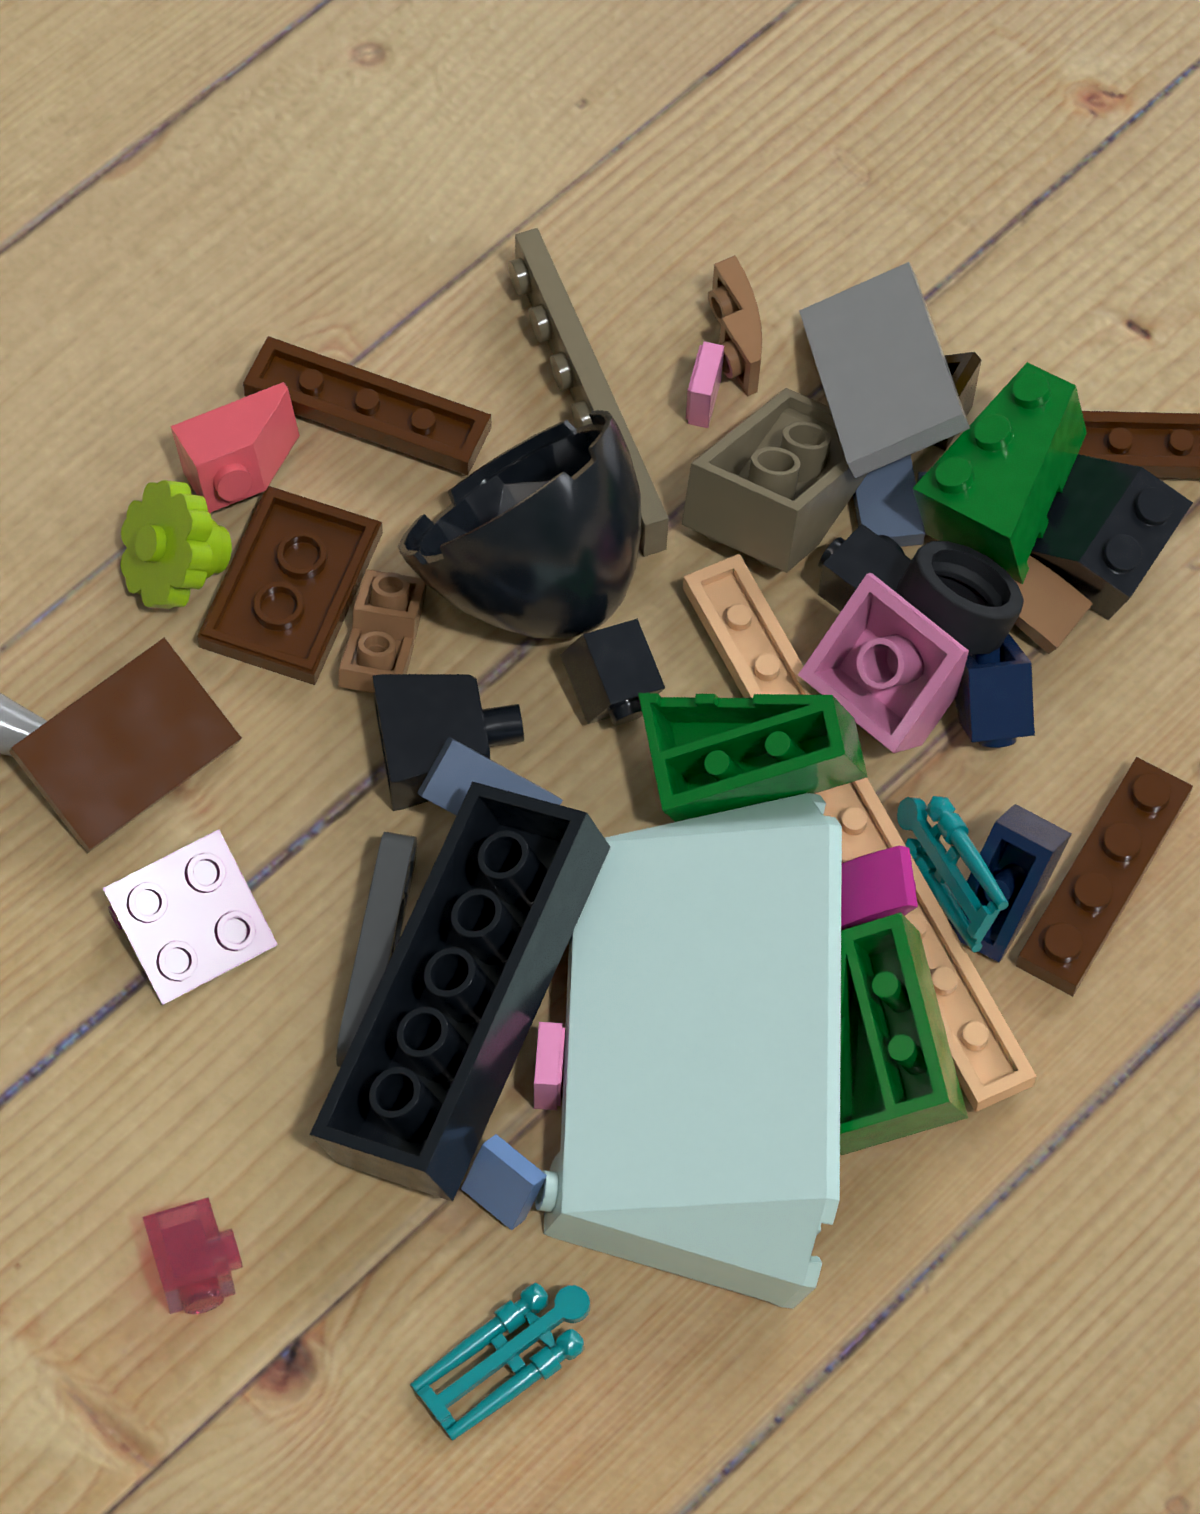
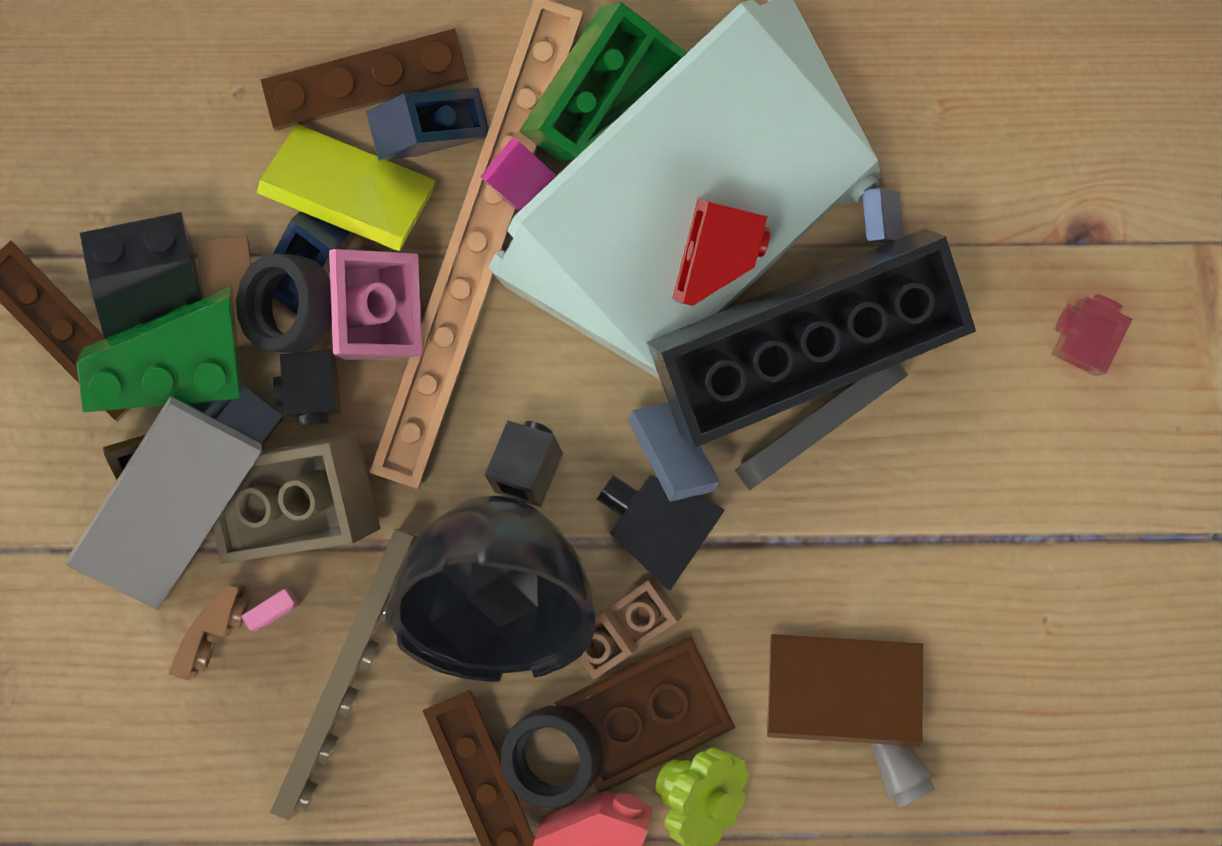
camera: 140 degrees left, 25 degrees up
(189, 917) = (906, 543): hinge -> none
(336, 501) = (525, 782): none -> black tyre
(549, 1066) = (794, 259): bright pink tile -> none
(571, 1306) = (913, 114): teal piece -> none
(627, 975) = (719, 249): none -> red slope
(747, 750) = (507, 331): green wedge -> none
(940, 867) = (462, 161): teal piece -> none
(1019, 747) = (346, 187): none -> neon yellow tile

